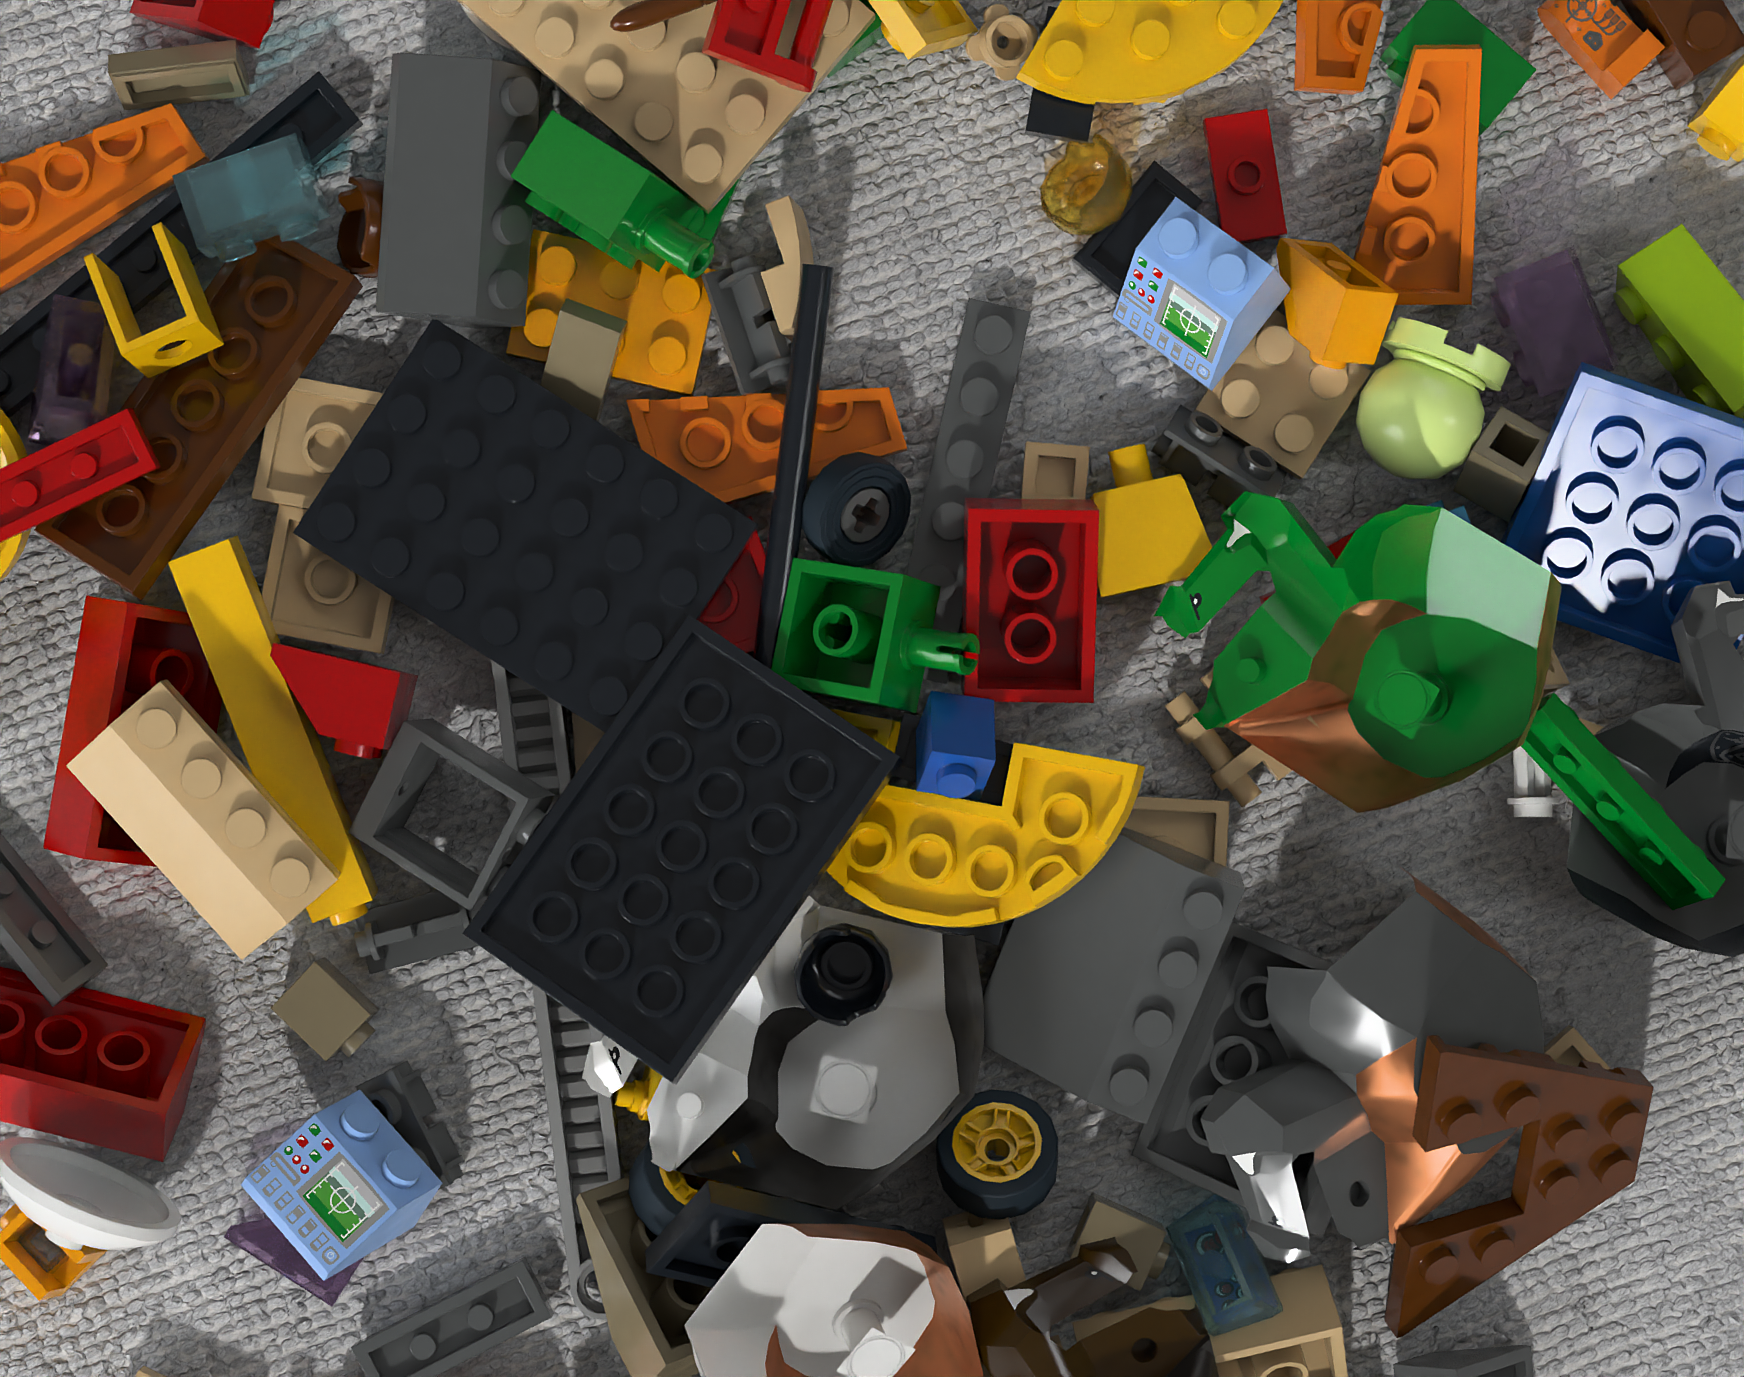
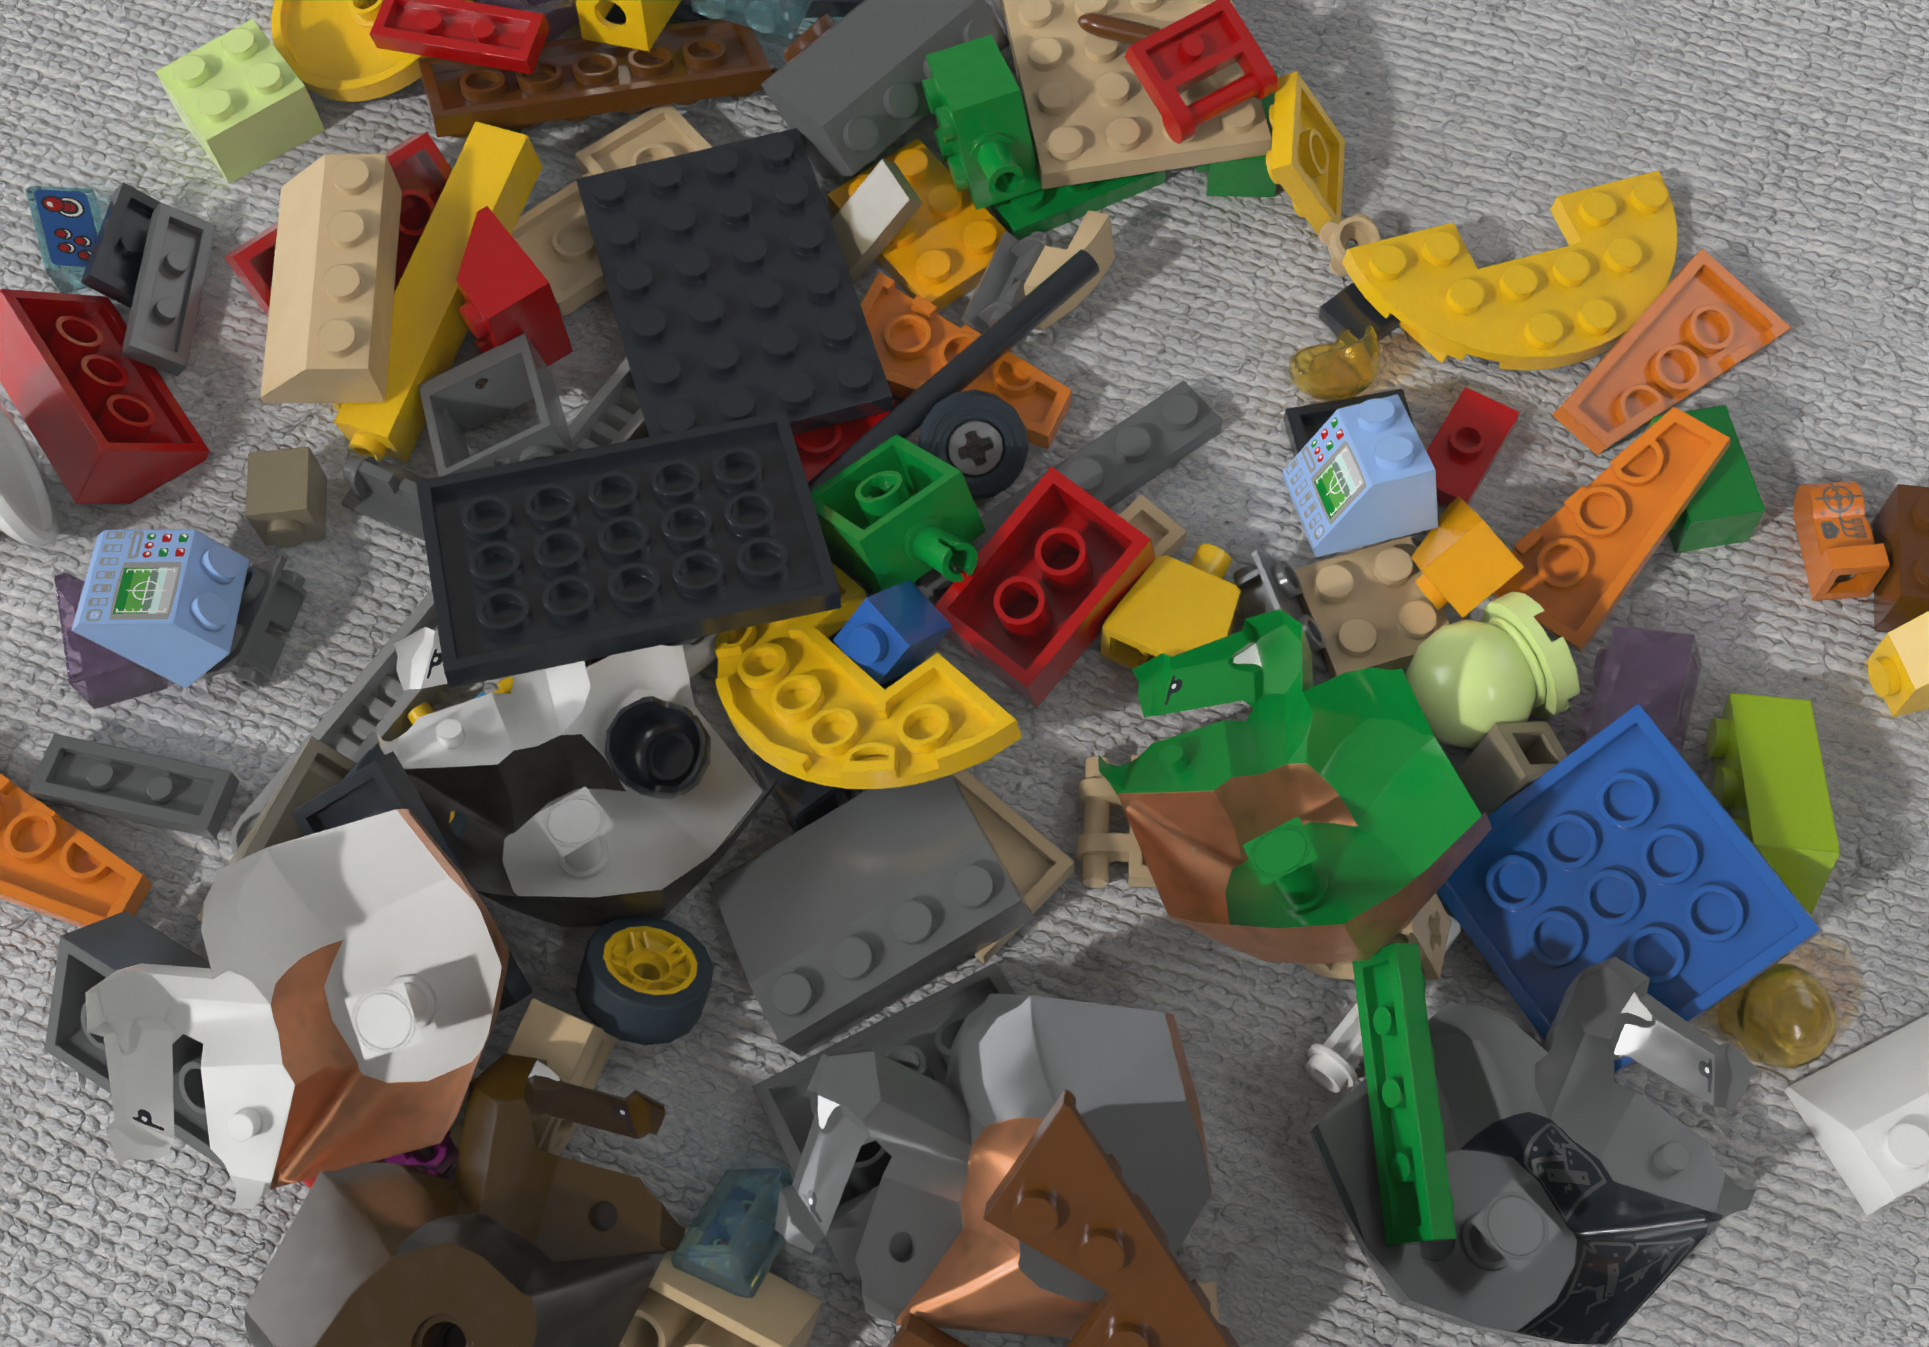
camera: 45 degrees right, 25 degrees down
(1132, 1231) = (684, 1150): dark tan brick -> none

